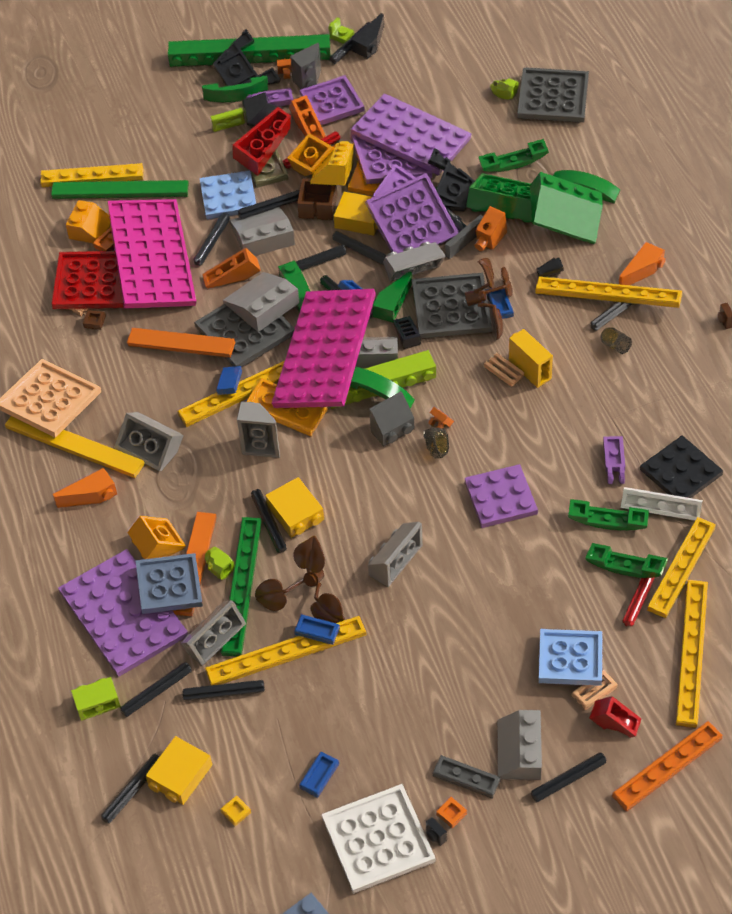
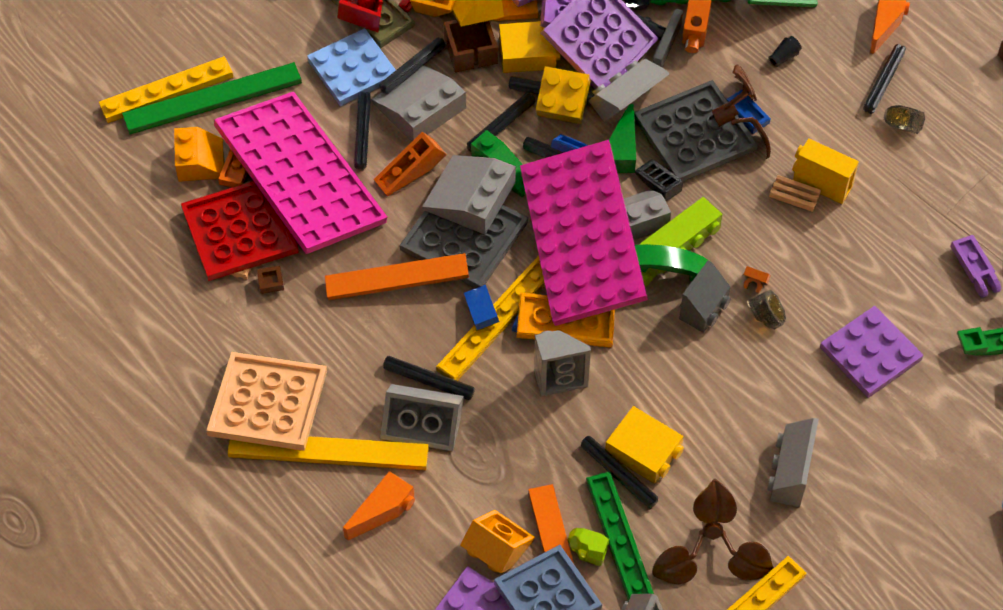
camera: 25 degrees left, 5 degrees up
(168, 417) = (428, 377): none -> black axle
(317, 629) = (751, 590): blue tile -> none
(364, 252) = (563, 95): none -> yellow brick
(609, 292) = (867, 62): yellow tile -> none

